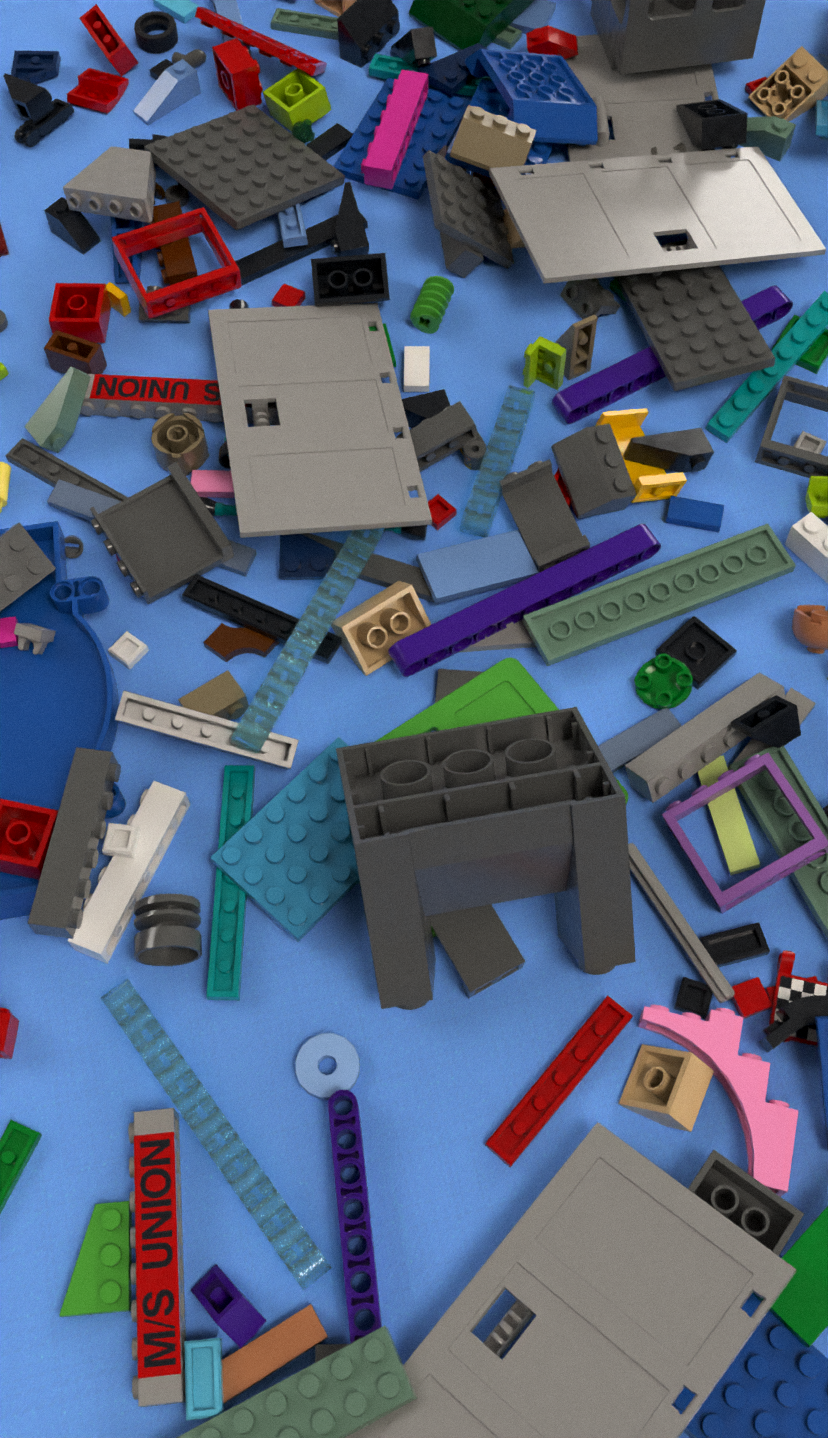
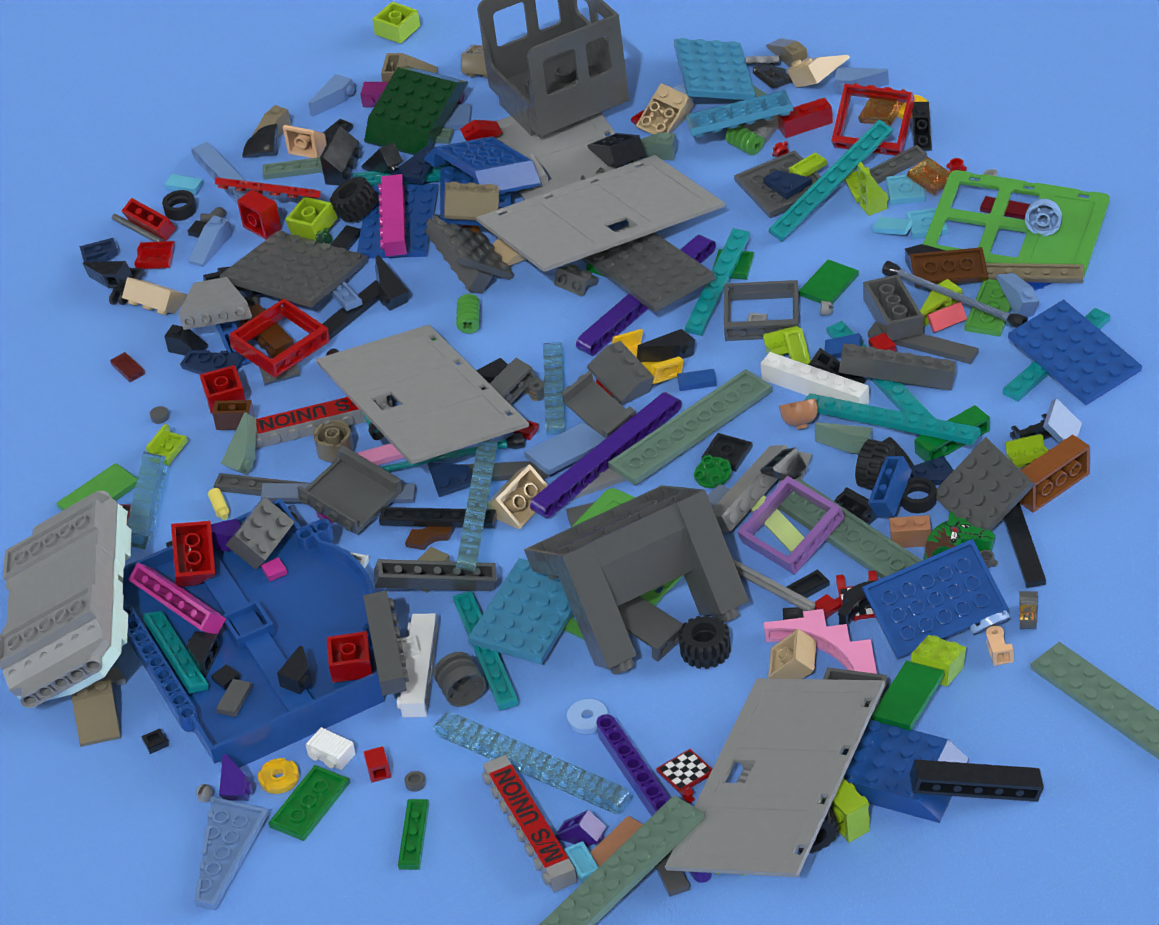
camera: 15 degrees left, 20 degrees down
(33, 633) = (297, 560): light grey tile -> none
(38, 1085) = (415, 781): none -> dark grey tile
(63, 144) = (153, 296): none -> tan slope
(86, 266) = (204, 361): none -> dark blue wing
(95, 48) = (136, 228): none -> dark grey bar
(103, 1267) = (498, 842): bright green wing -> none
(118, 299) = (245, 375): yellow tile -> none
(288, 296) = (363, 338): red tile -> none
(350, 279) = (404, 314): black slope -> none
(358, 90) = (353, 199): none -> black tyre
(416, 368) = (474, 354): white tile -> none
(431, 1247) = (685, 772): none -> flag
(544, 363) = (562, 323): lime bracket -> none
(549, 976) = (704, 642): none -> black tyre
(558, 1081) = (728, 679): red tile -> none
(579, 344) = (578, 308): dark tan slope -> none

